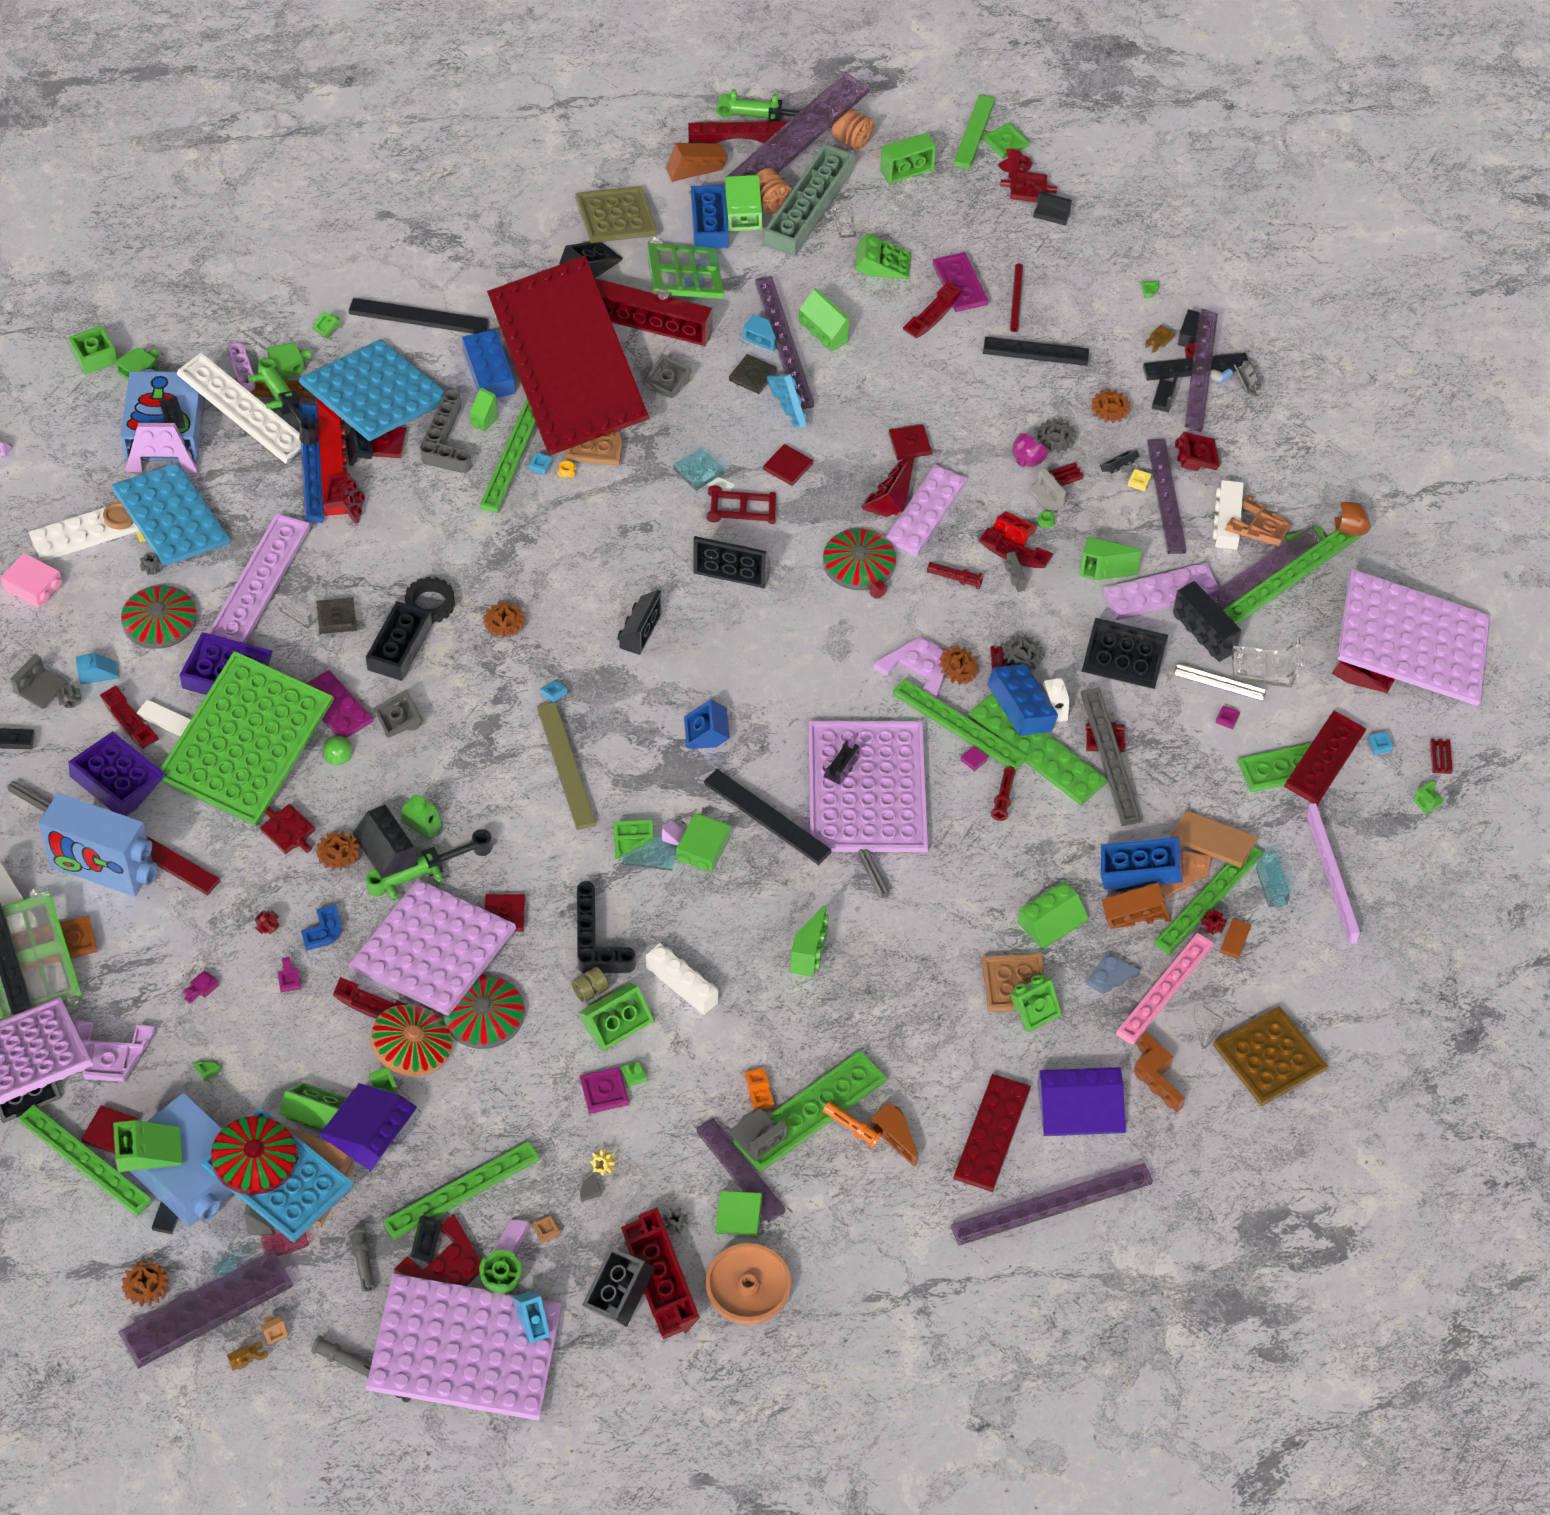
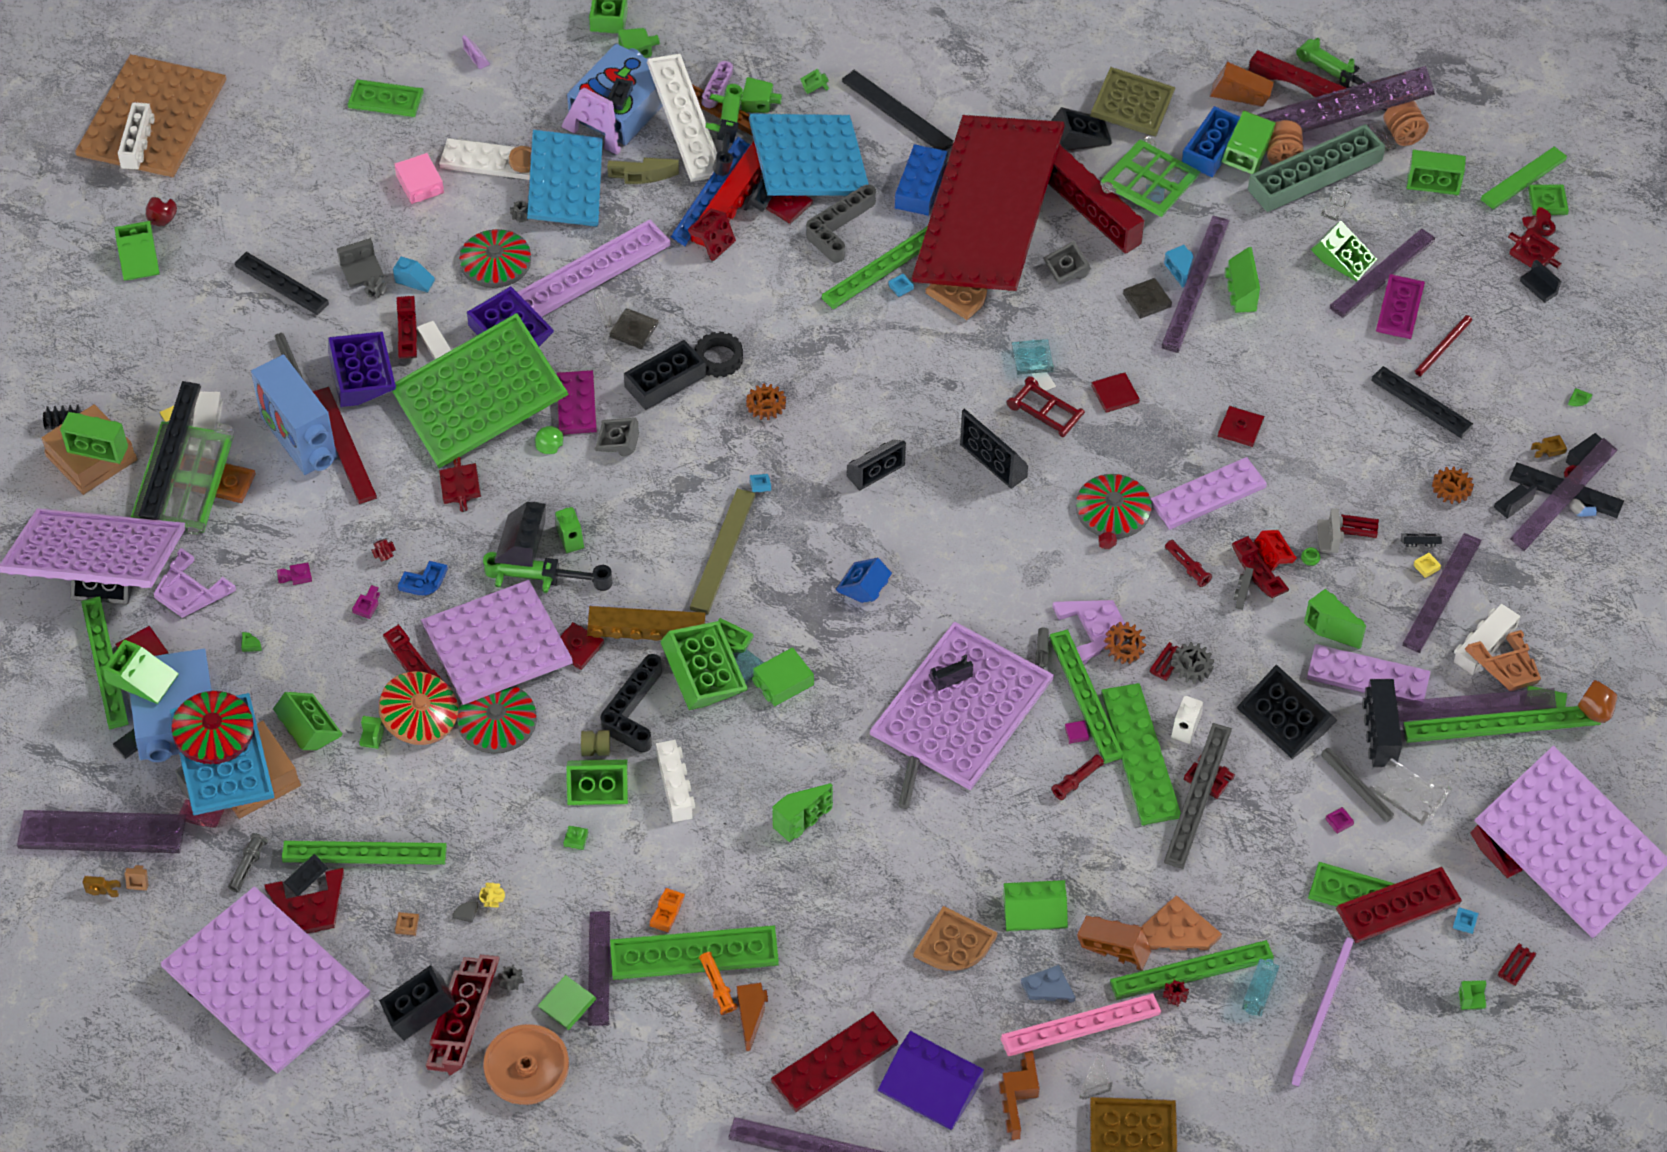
camera: 35 degrees right, 0 degrees up
(156, 1283) = (72, 784): dark orange gear -> none
(224, 1267) = (137, 806): clear light blue plate -> none
(239, 473) = (647, 172): none -> olive slope
(334, 1353) = (168, 924): dark grey pin -> none
(337, 850) = (483, 522): dark orange gear -> none
(368, 1123) = (327, 755): dark purple slope -> none
(484, 410) = (884, 216): bright green slope -> none
(501, 1271) = (338, 935): bright green cylinder -> none
(513, 1236) = (372, 916): lavender slope -> none
(531, 1316) = (331, 985): dark azure slope -> none
(553, 861) = (638, 623): none -> pearl gold brick
(566, 469) = (919, 301): yellow plate -> none
(604, 1090) = (541, 837): magenta tile -> none
(631, 868) = (703, 664): none -> bright green slope
(672, 833) = (762, 653): lavender slope -> none
(758, 1134) = (630, 945): dark grey bracket -> none
(768, 817) = (854, 685): black tile -> none
(783, 388) = (1157, 334): dark azure plate -> none
(892, 492) = (1187, 463): dark red wedge -> none
(896, 708) = (1042, 647): none -> dark grey piece
(924, 262) = (1380, 274): none -> clear purple tile
(934, 312) = (1353, 322): dark red slope -> none
(1022, 699) = (1155, 702): blue brick -> none
(1028, 452) = (1339, 488): magenta cylinder -> none
(1036, 1002) = (956, 971): bright green plate -> none
(1056, 435) = (1379, 486): dark grey gear -> none
(1141, 863) = (1146, 903): blue brick -> none
(1197, 452) = (1501, 567): dark red plate -> none
(1214, 838) = (1236, 920): medium nougat tile -> none
(1235, 938) = (1186, 1019): dark orange tile -> none
(1244, 373) = (1605, 524): dark grey hinge -> none

